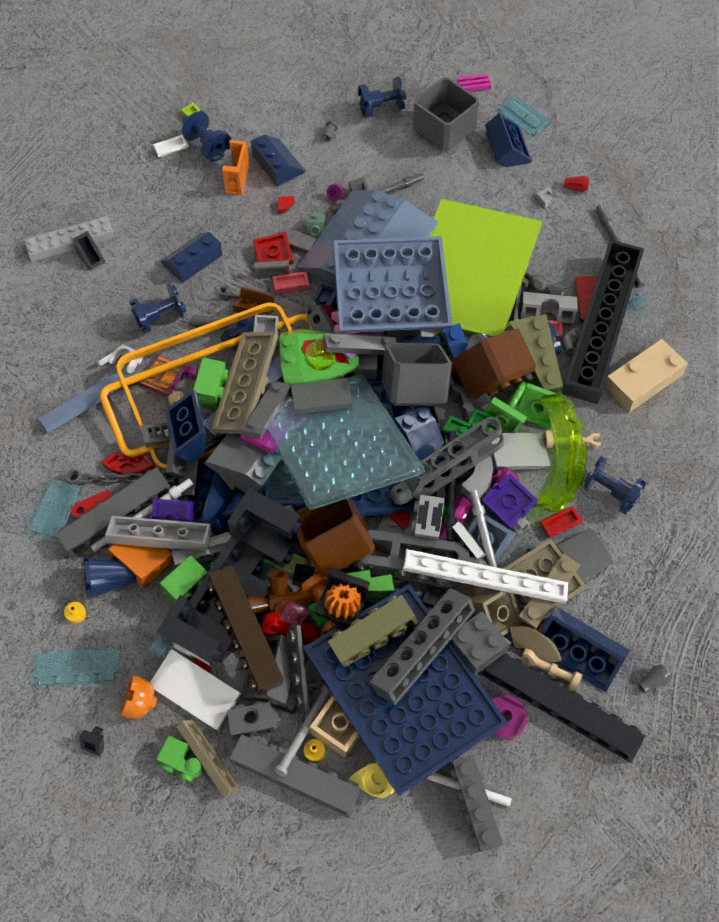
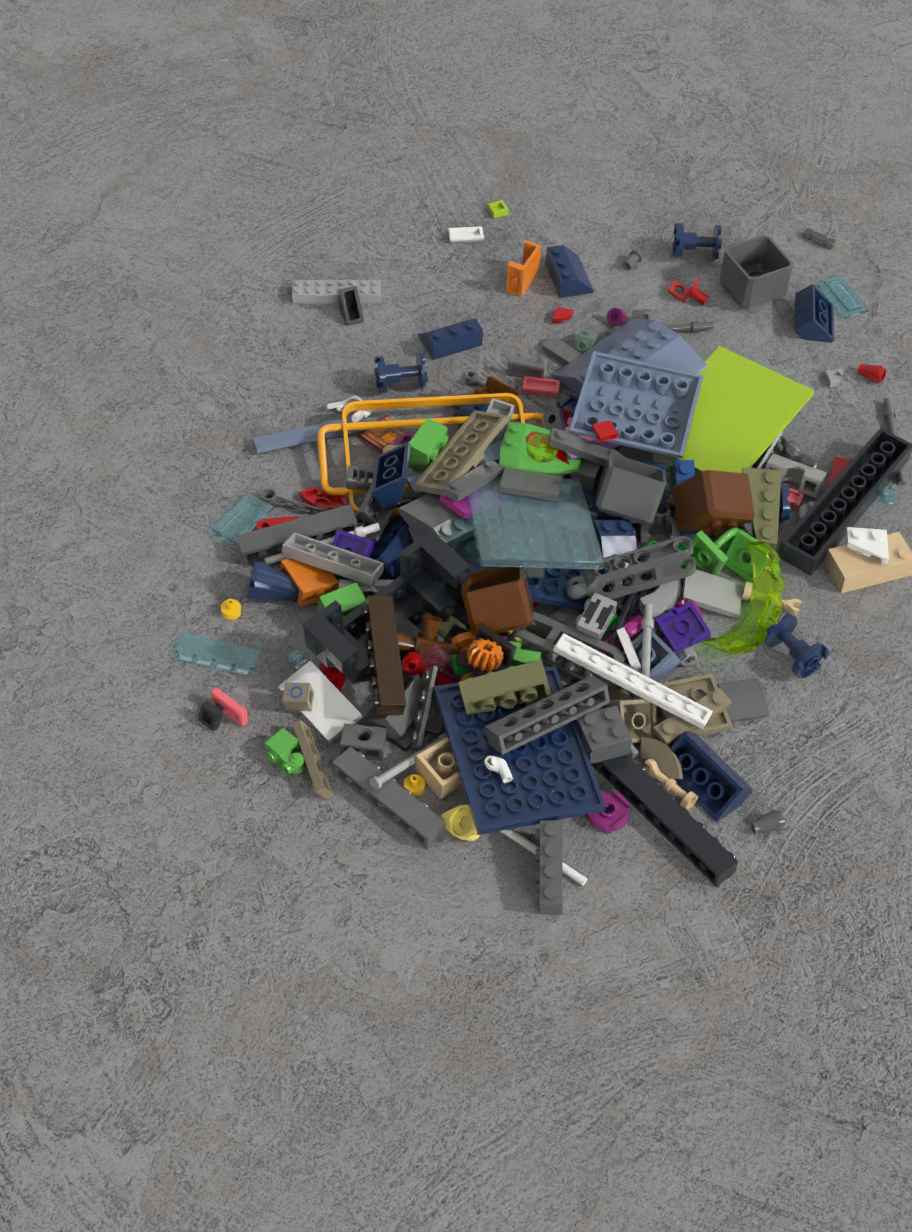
camera: 15 degrees right, 10 degrees down
(107, 725) = (231, 707): none -> coral tile
(138, 698) = (265, 691): orange cylinder -> none
(172, 694) = (297, 696): none -> dark tan brick
(213, 143) = (509, 240): dark blue piece -> none
(273, 248) = (535, 350): red tile -> none
(373, 322) = (604, 431): none -> red tile
(391, 149) = (694, 292): none -> red bracket
(395, 716) = (500, 766): none -> white arm
(401, 519) = (570, 616): red tile -> none
(475, 82) = (802, 253): dark pink tile -> none
(484, 64) = (819, 238): none -> dark grey axle
(561, 521) = (730, 666): red tile -> none
(642, 359) = (868, 542): none -> white wing

